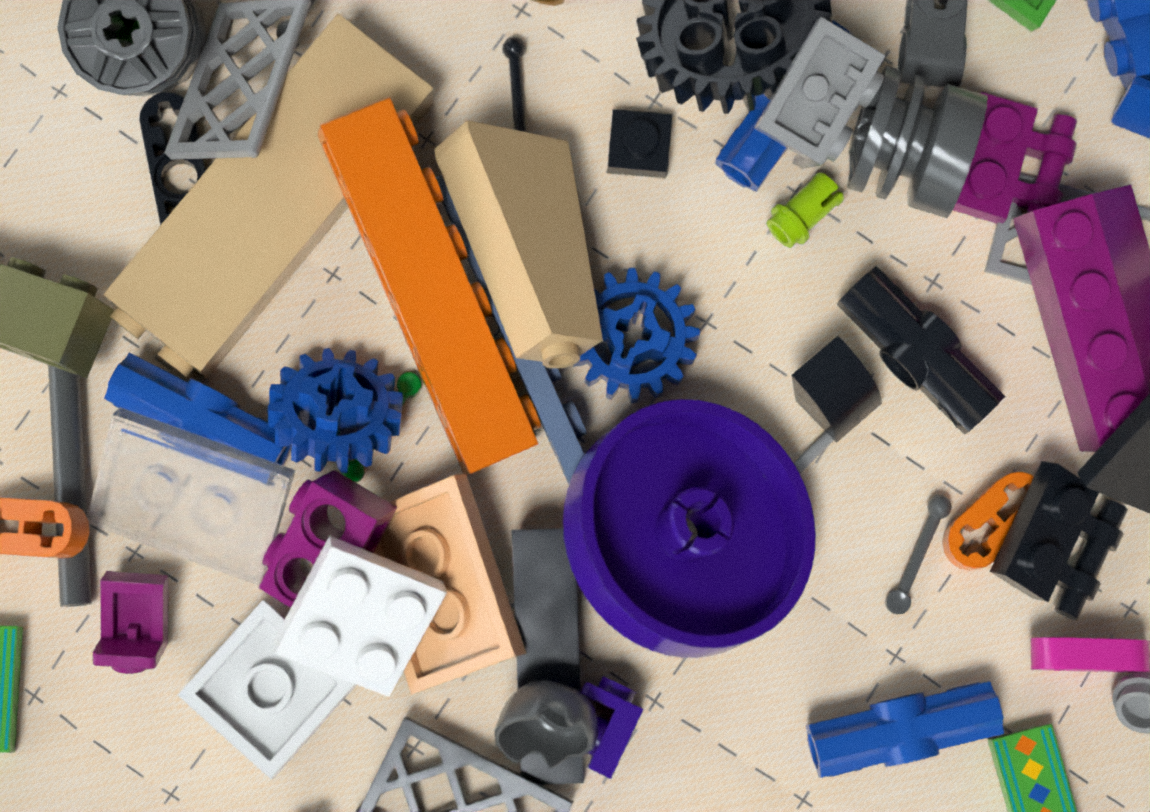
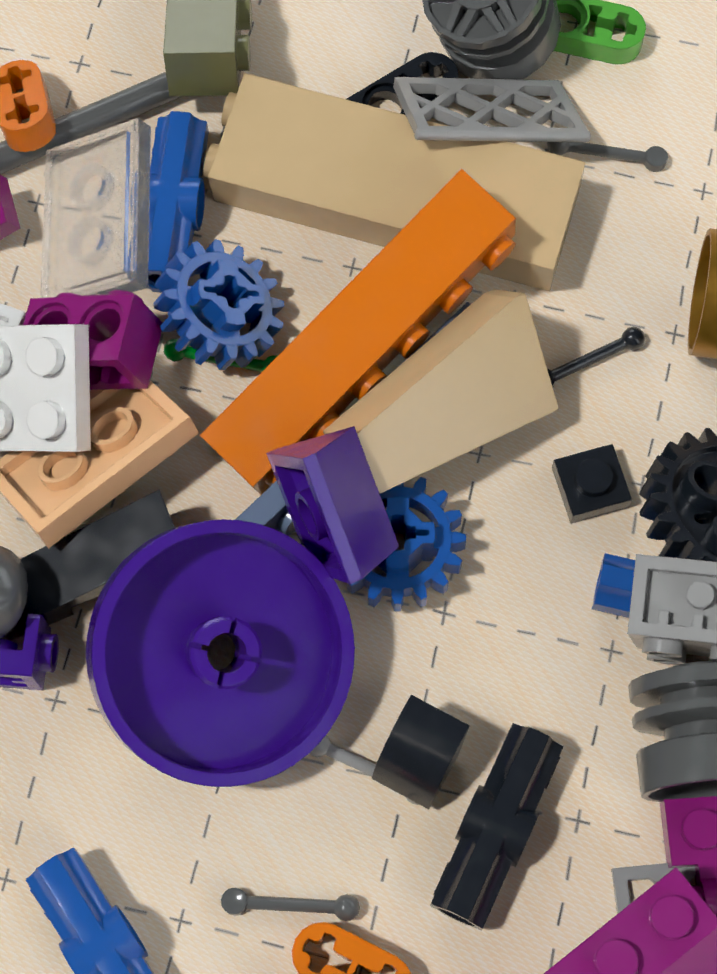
camera: 75 degrees right, 10 degrees down
(601, 373) = (335, 503): none -> dark purple slope
(801, 213) = (592, 660): lime pin -> none

